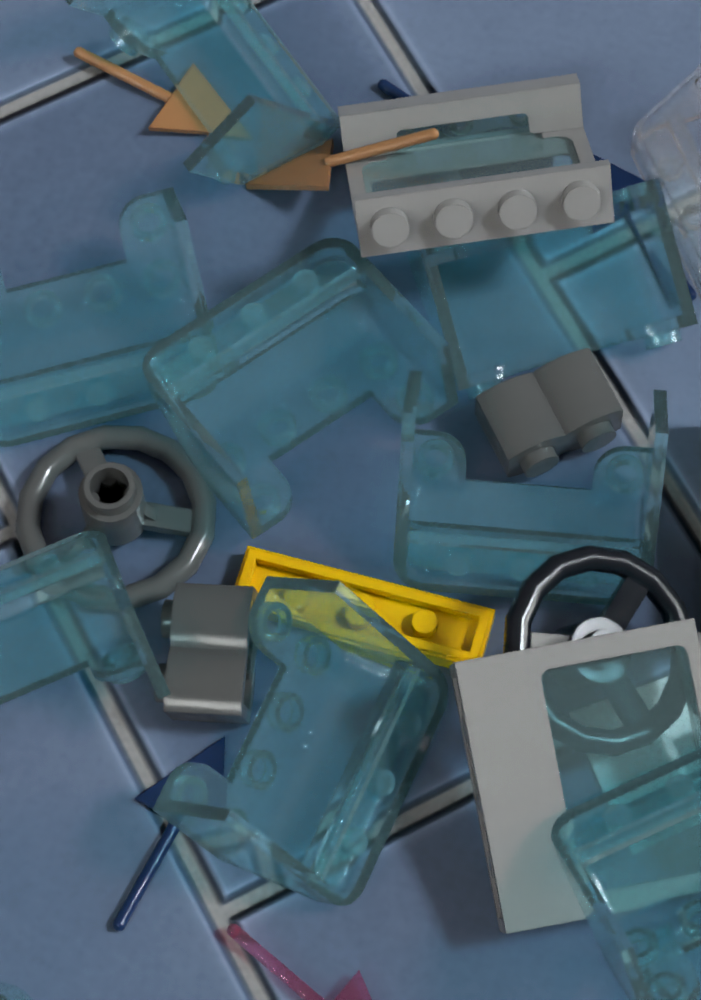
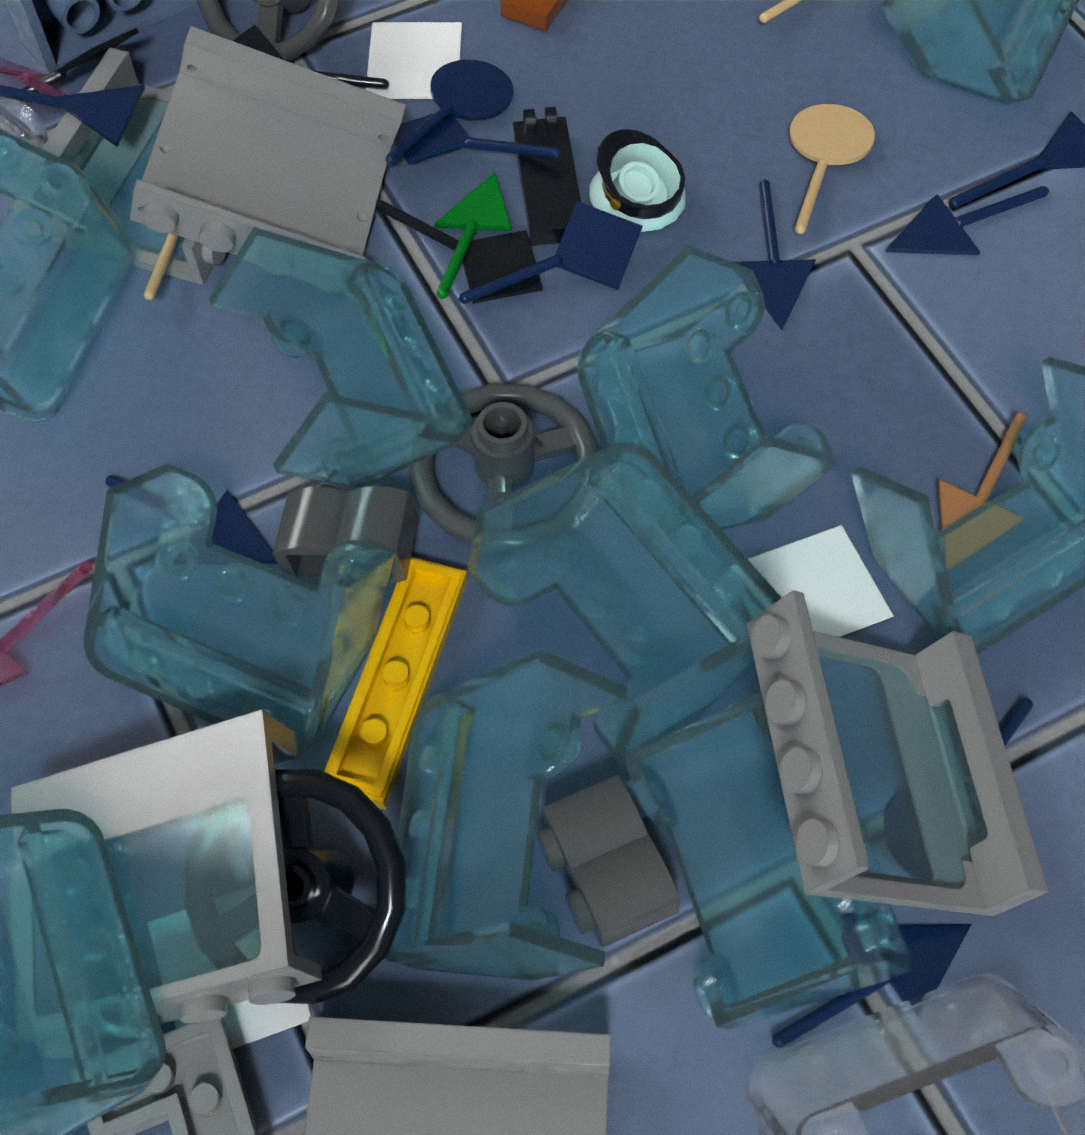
camera: 90 degrees right, 5 degrees down
(255, 236) = (833, 581): none -> white sticker
(313, 168) = (897, 619): medium nougat piece -> none

